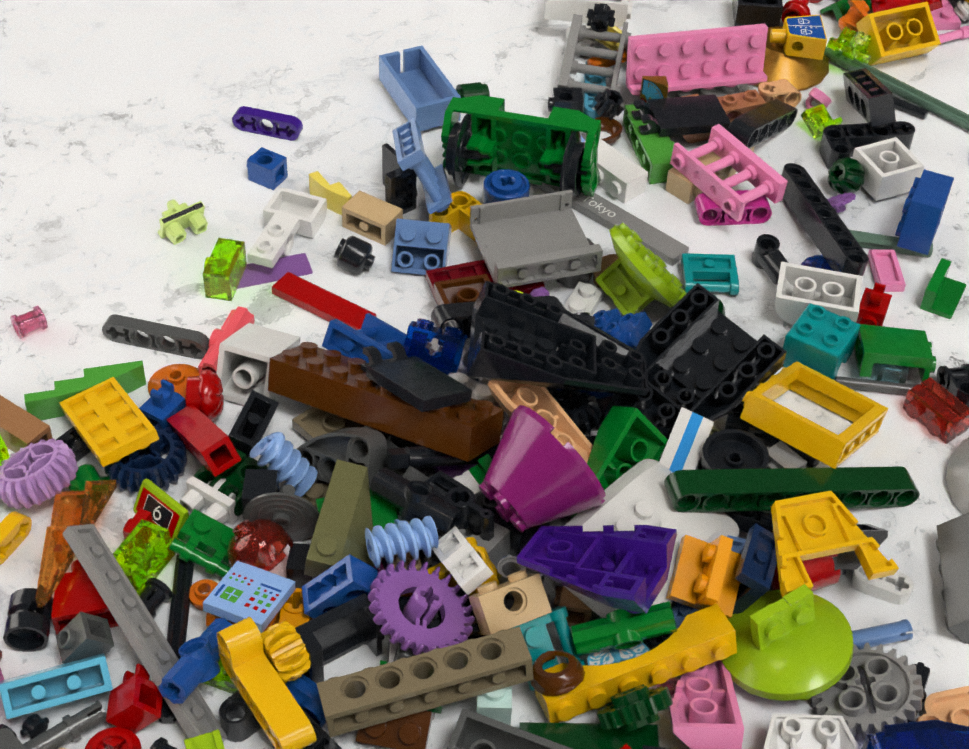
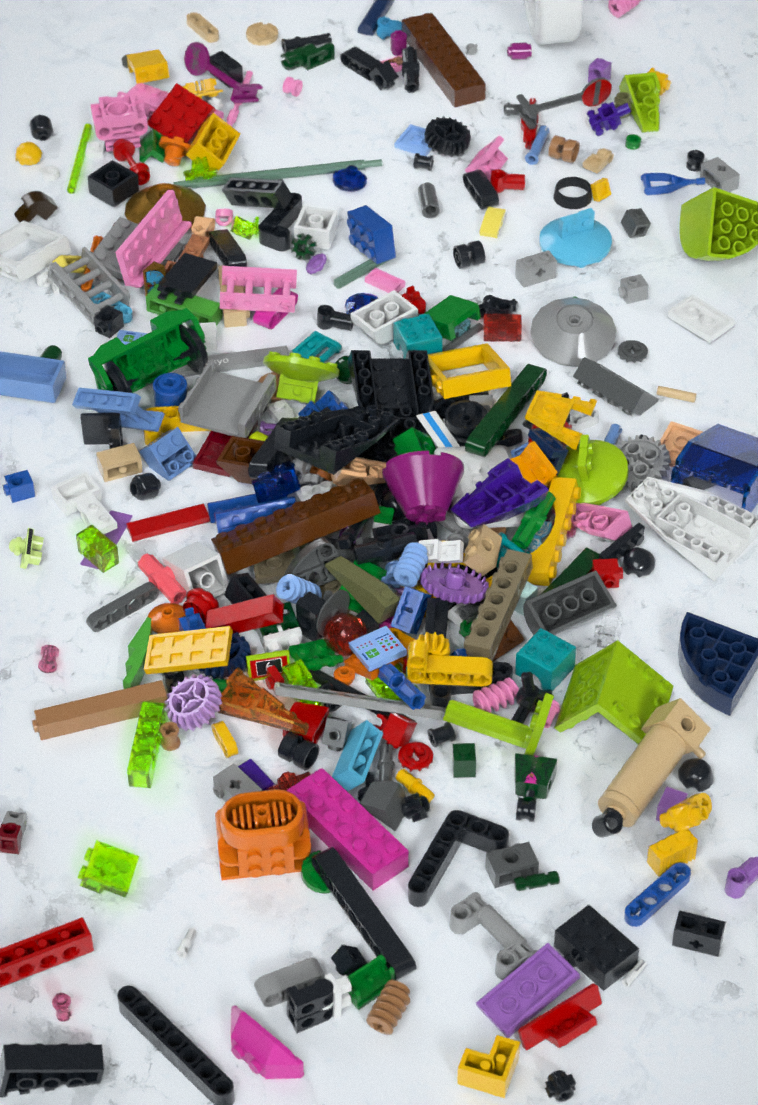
camera: 50 degrees left, 0 degrees up
(334, 193) = (68, 470): light yellow slope -> none
(414, 379) = (309, 498): black tile -> none
(560, 682) = (541, 561): reddish brown piece -> none
(600, 17) = (67, 254): black gear -> none
(609, 103) = (135, 302): black gear -> none
(612, 127) = (144, 316): reddish brown piece -> none
(634, 708) = (579, 543): dark green gear -> none
(801, 36) = (182, 181): yellow torso -> none
(822, 222) = (335, 280): black beam -> none
(942, 292) = (423, 270): green panel -> none

